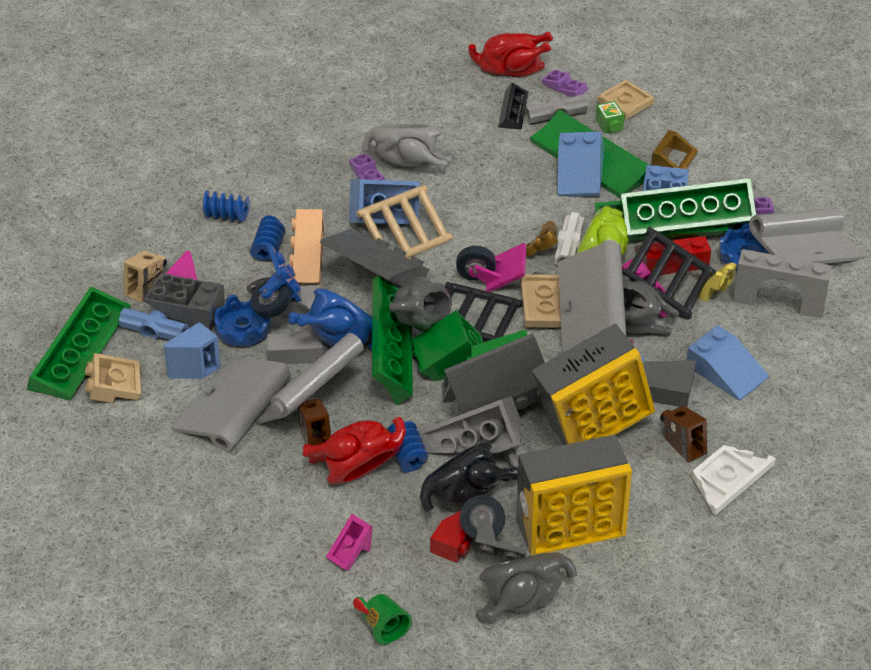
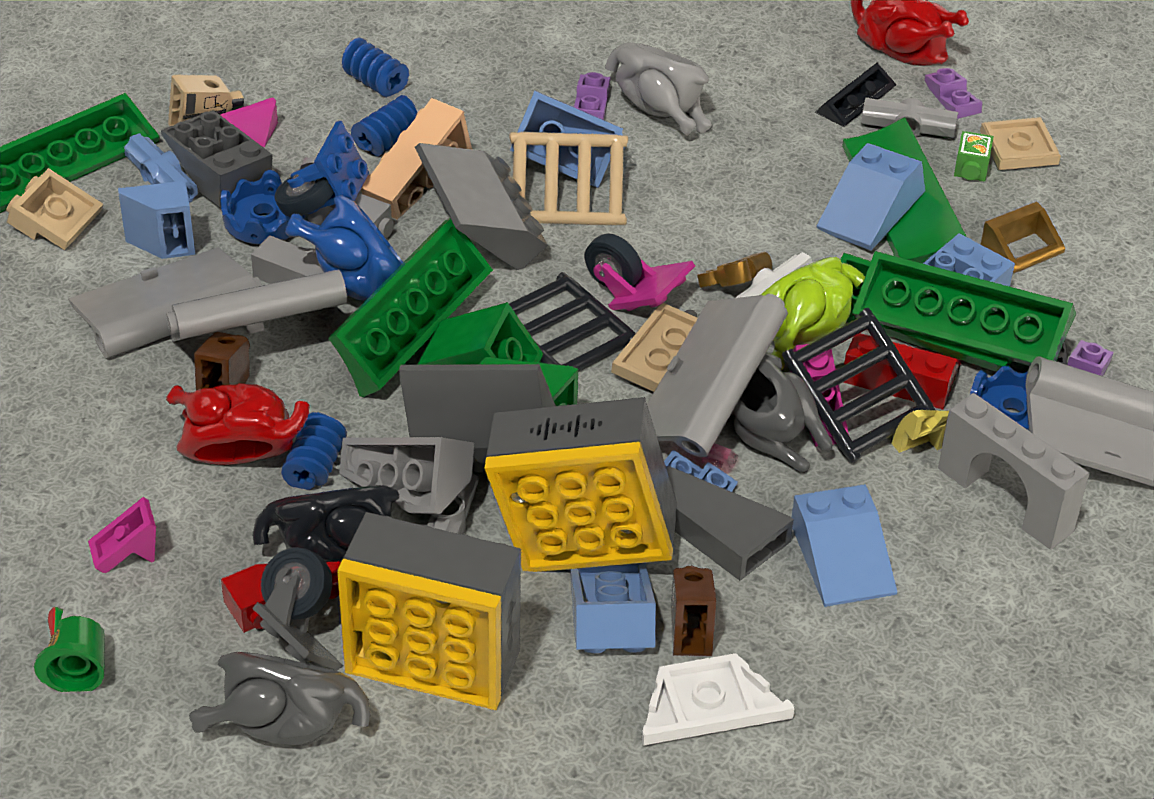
camera: 30 degrees right, 0 degrees up
(421, 303) = (472, 274): dark grey piece -> none
(648, 451) = (613, 608): none -> medium blue slope

